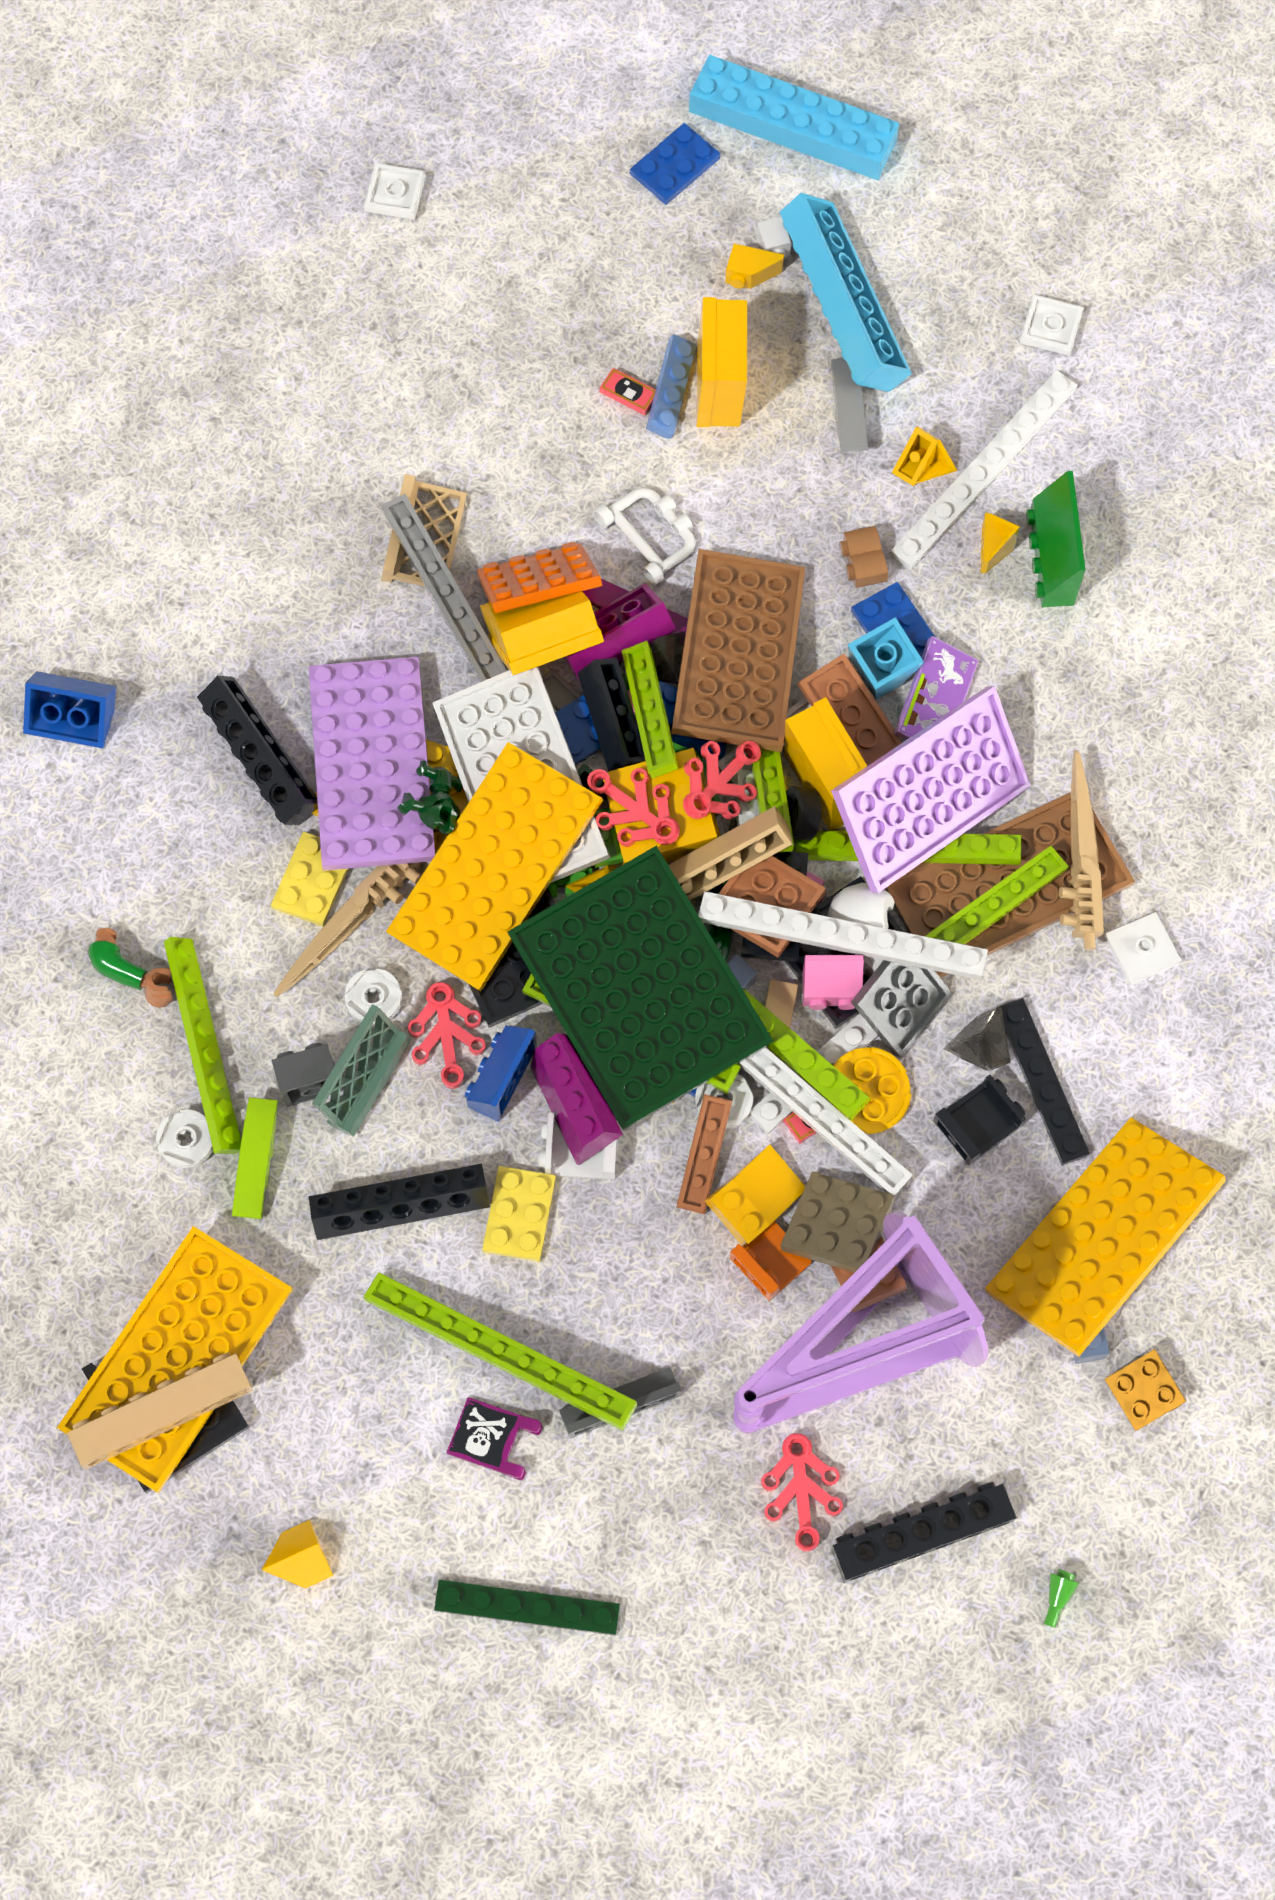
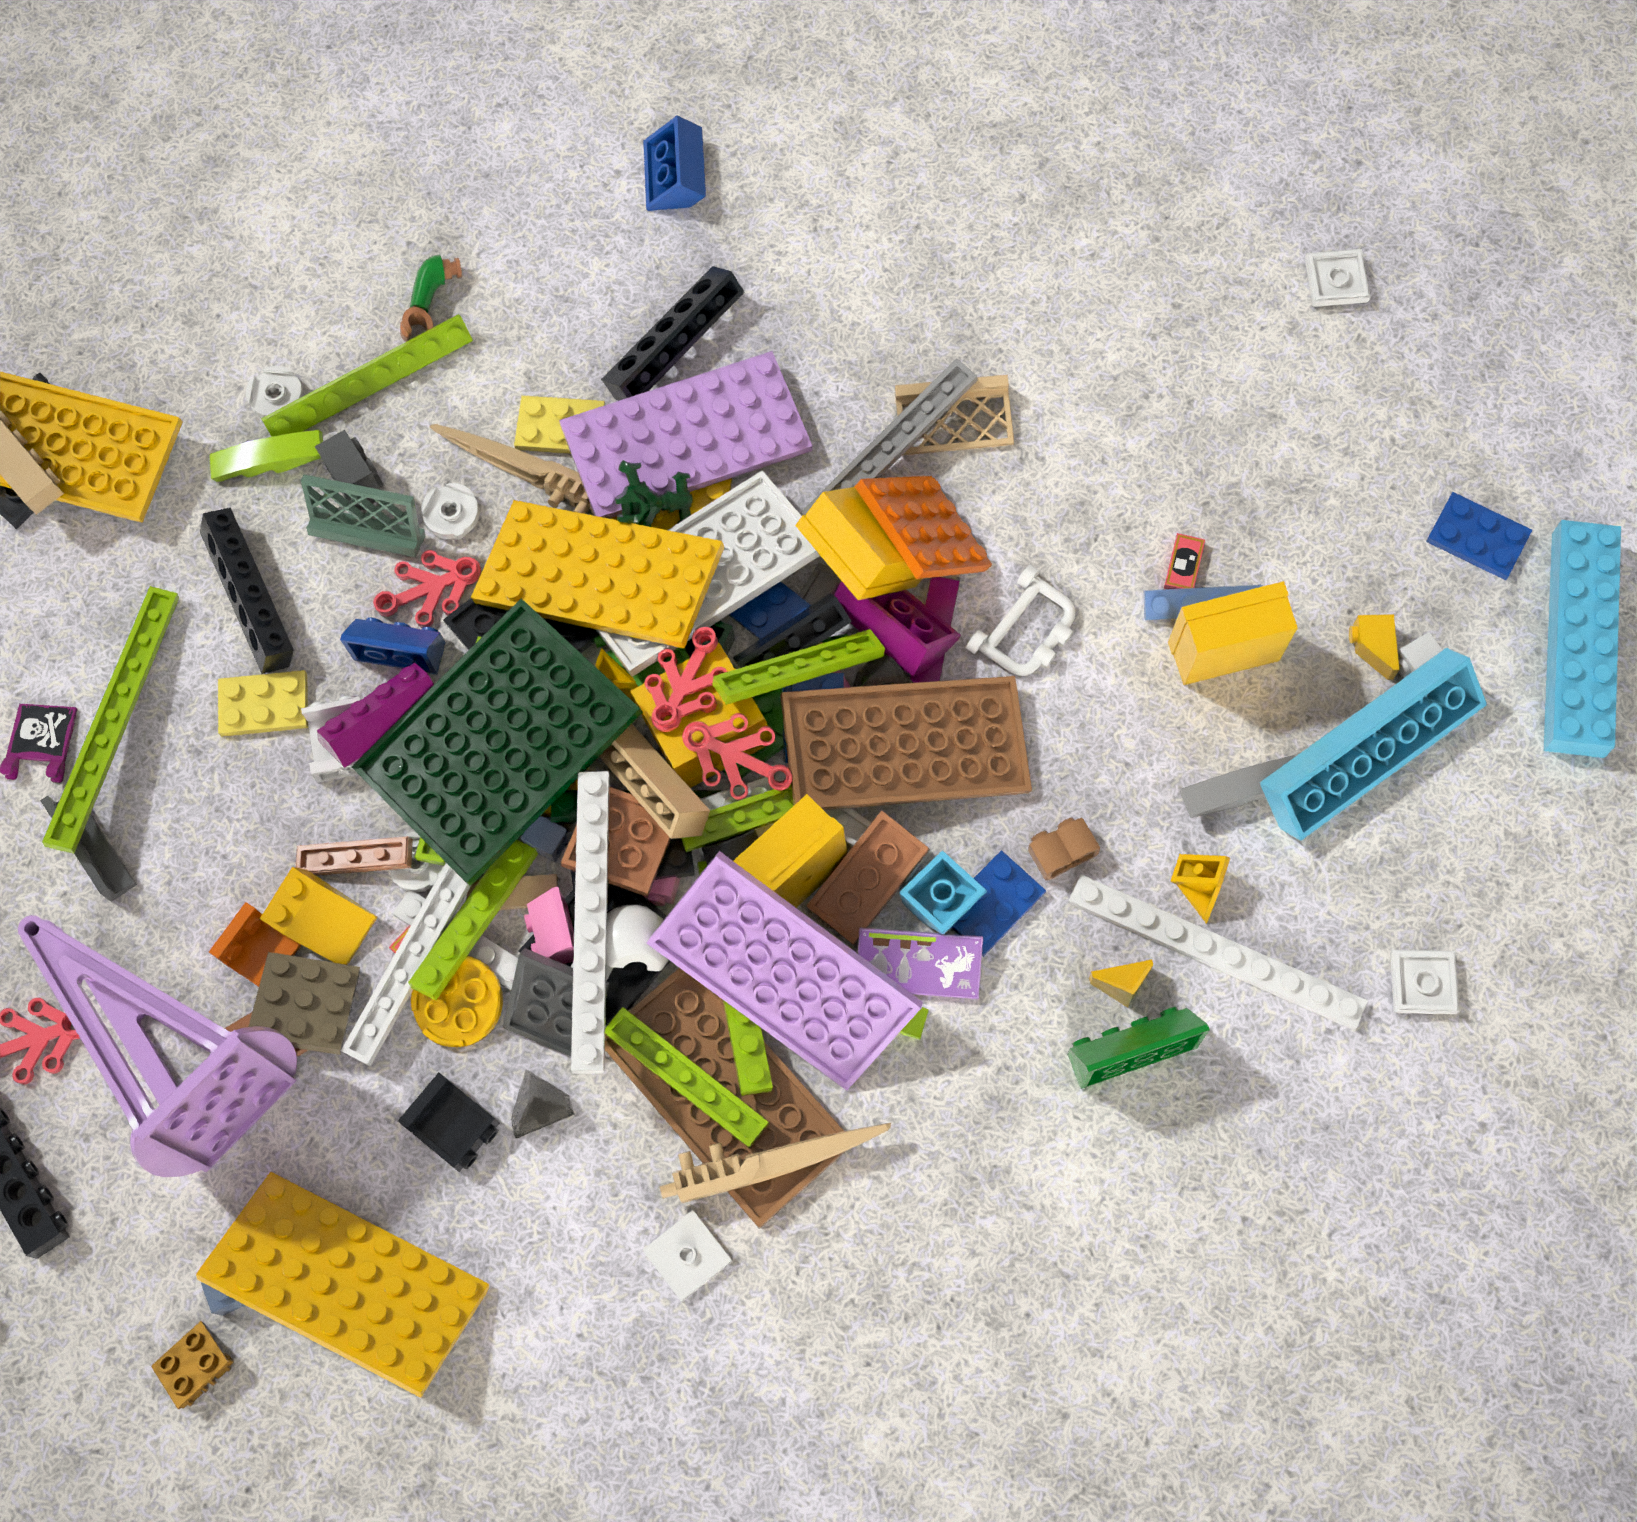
camera: 80 degrees right, 0 degrees up
(1043, 1083) = (509, 1181): black plate -> none

